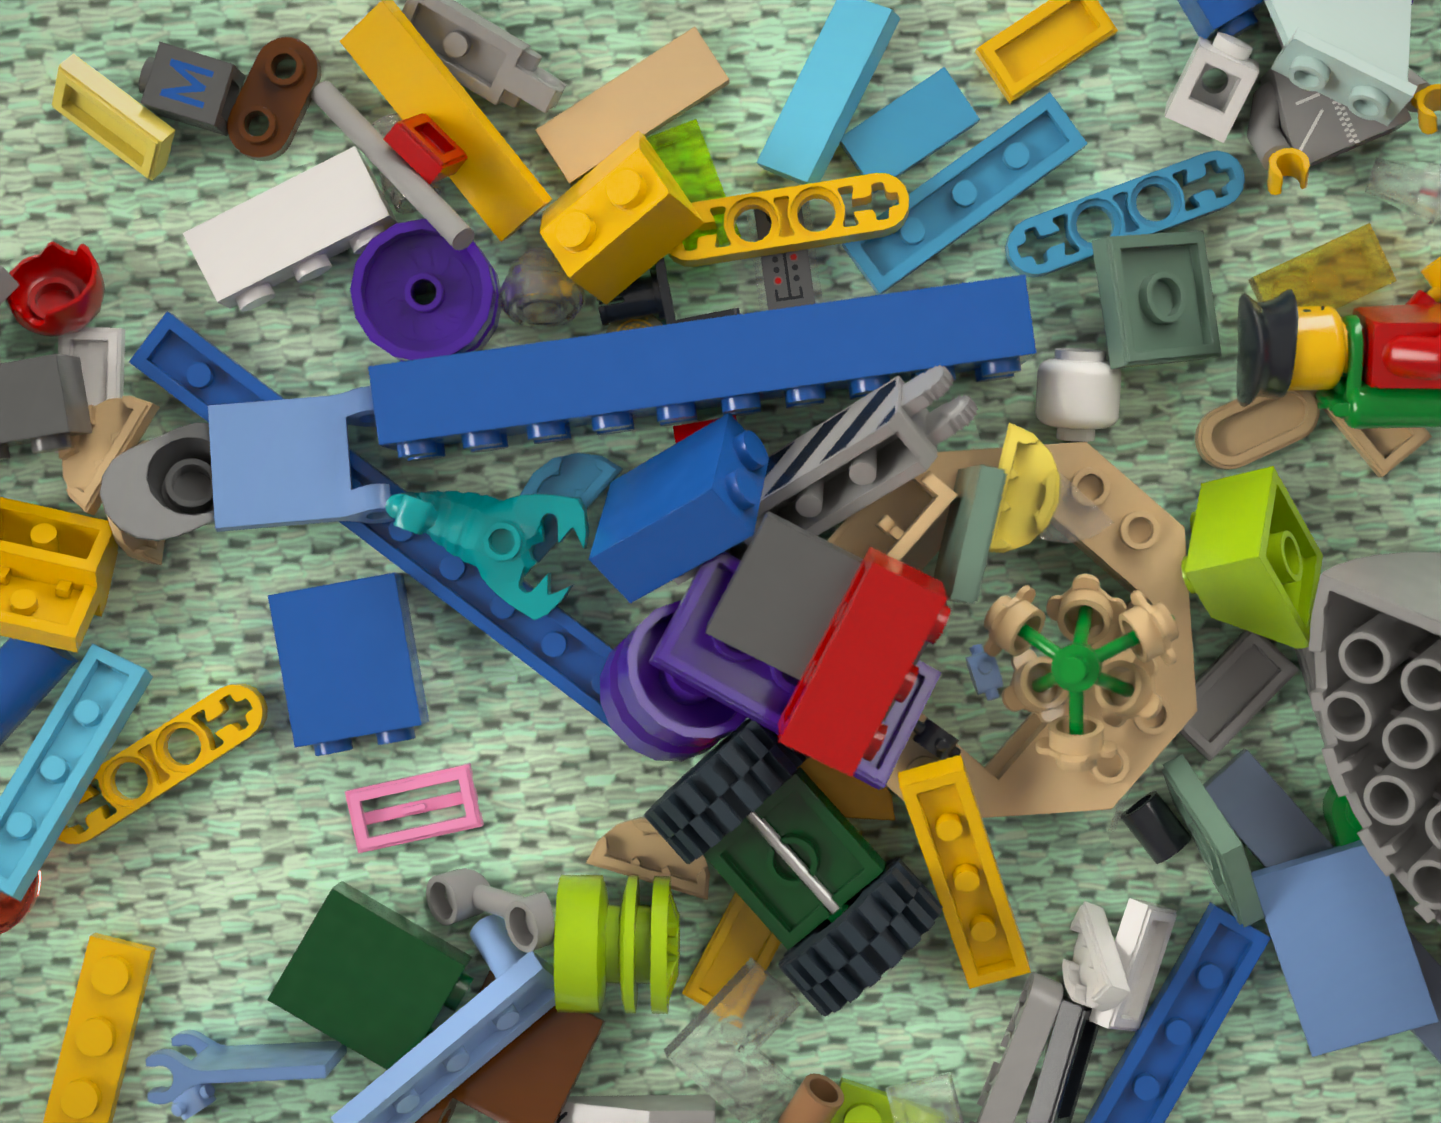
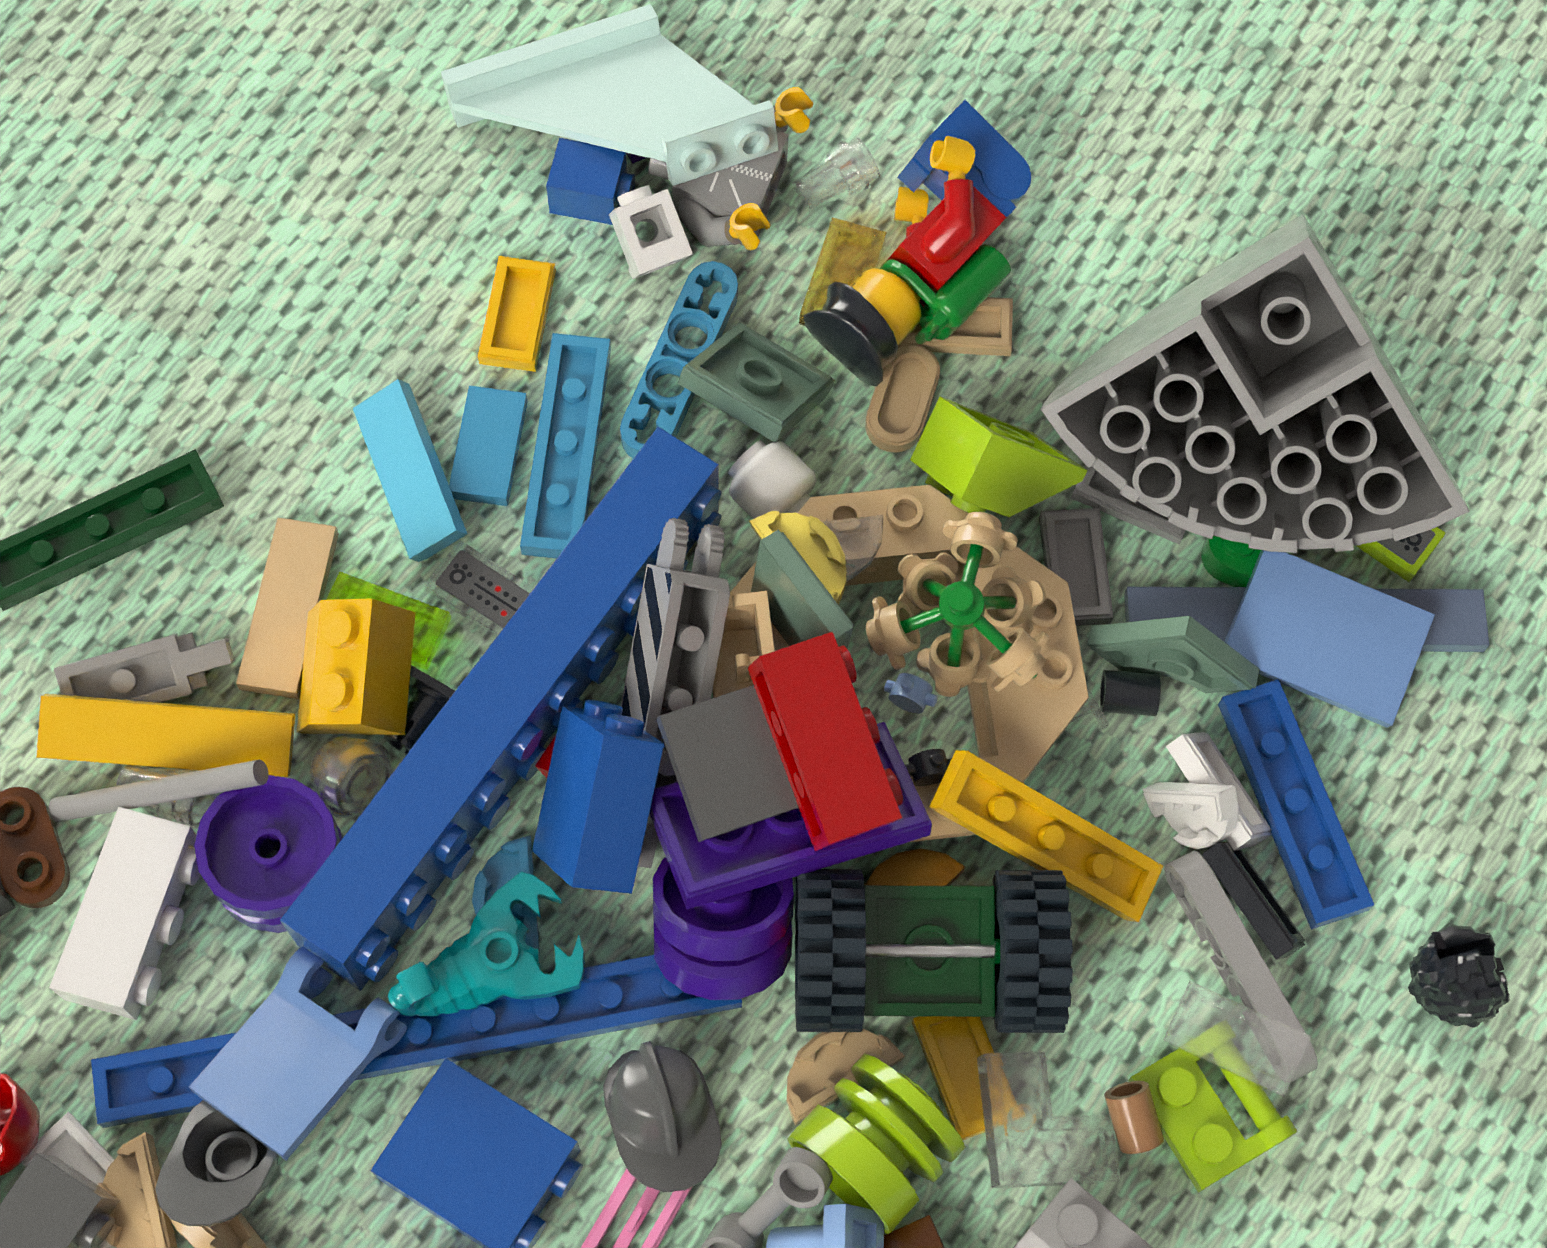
camera: 55 degrees left, 20 degrees down
(426, 148) = (171, 757): red tile -> none
(503, 761) = (662, 1117): none -> dark grey piece
(786, 231) = (476, 571): yellow beam -> none

